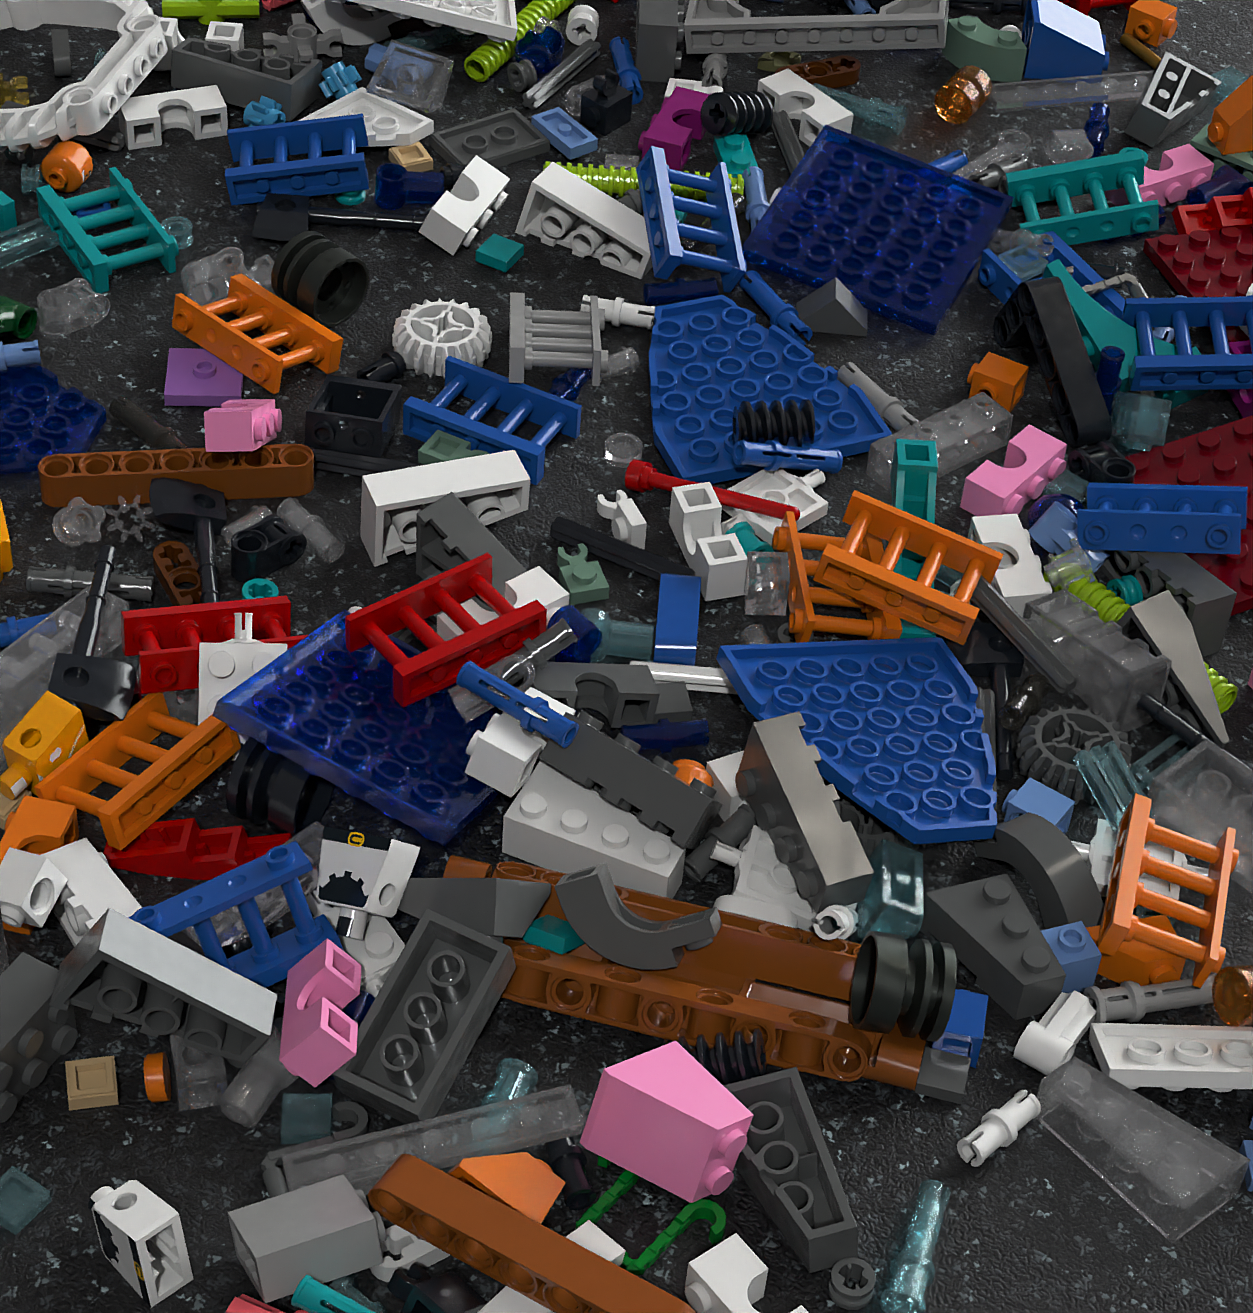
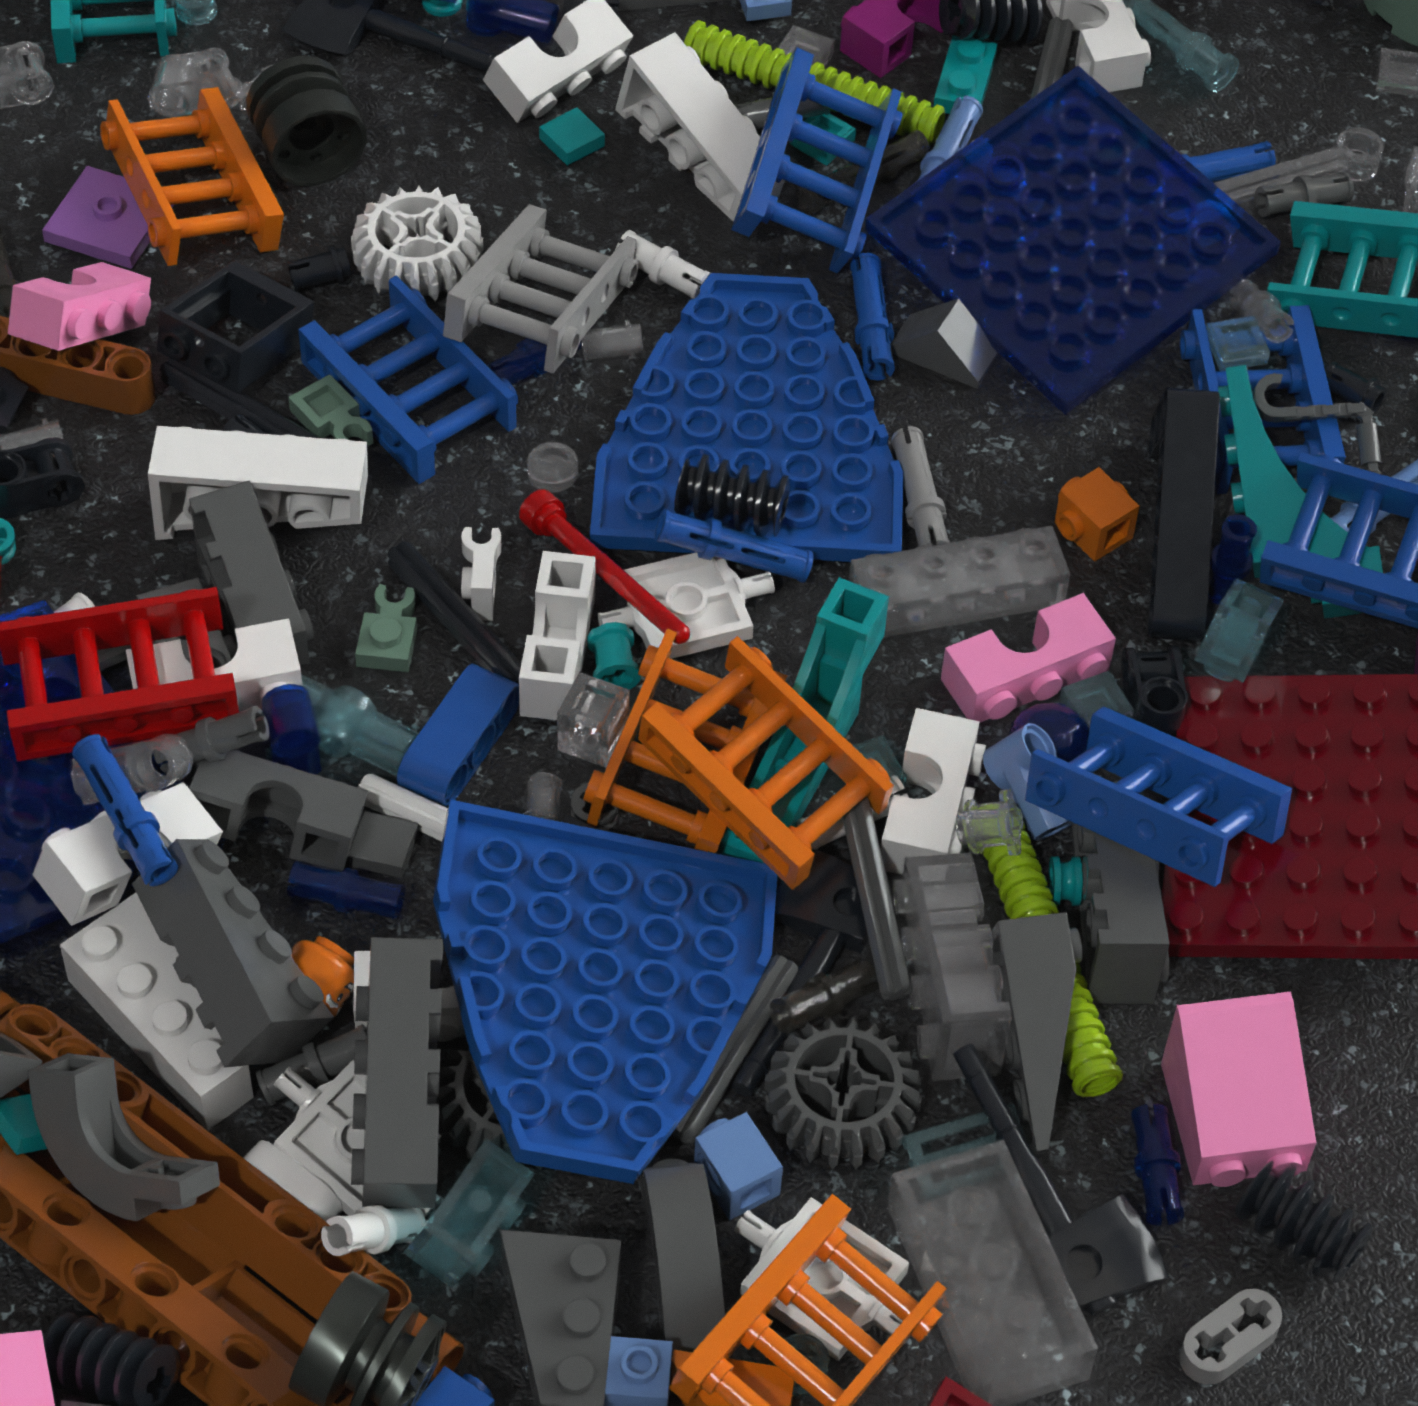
camera: 25 degrees right, 10 degrees up
(312, 528) = (100, 469): clear pin -> none
(678, 291) = (764, 257): clear blue pin -> none
(963, 94) = (1330, 57): clear orange wheel -> none
(1118, 776) = (843, 1113): clear light blue tile -> none

